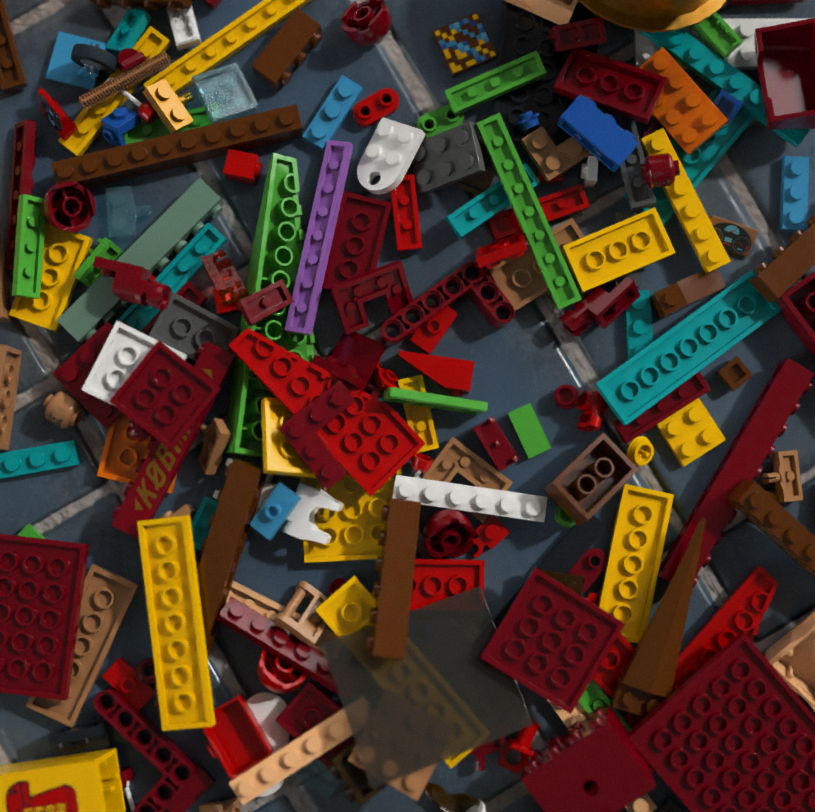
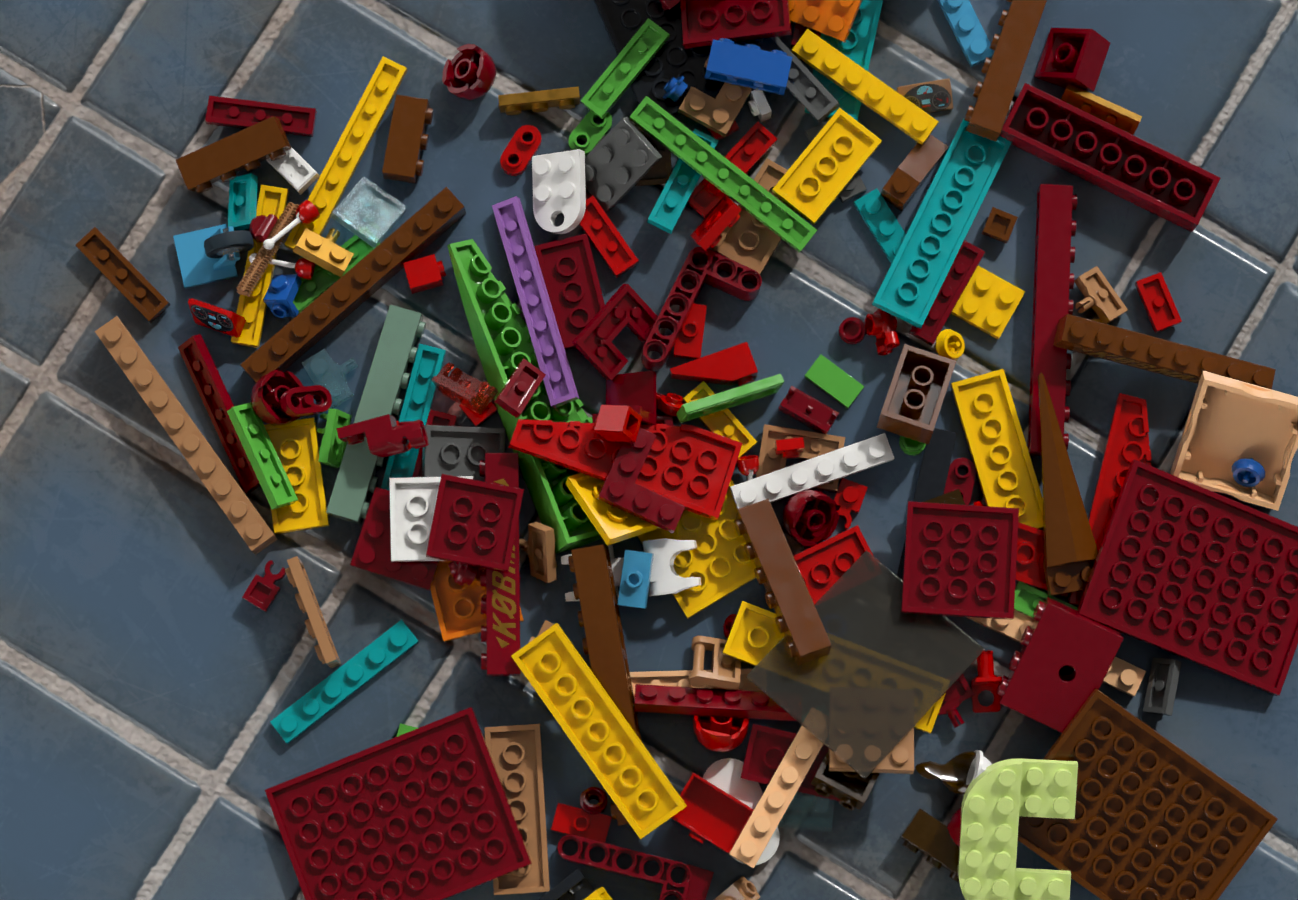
camera: 25 degrees left, 5 degrees down
(63, 409) = (376, 595): medium nougat head -> none
(86, 220) = (303, 400): none -> dark red plate
(170, 66) = (305, 213): none -> hinge
(200, 523) = (570, 625): teal plate -> none
(327, 375) = (618, 423): none -> red brick
(333, 112) = (481, 177): dark azure plate -> none
(411, 74) = (539, 100): none -> pearl gold plate
(462, 468) = (789, 447): none -> red plate
(464, 44) = (574, 46): tile -> none
(599, 307) = (838, 229): dark red plate -> none
(659, 170) = (825, 72): dark red head -> none

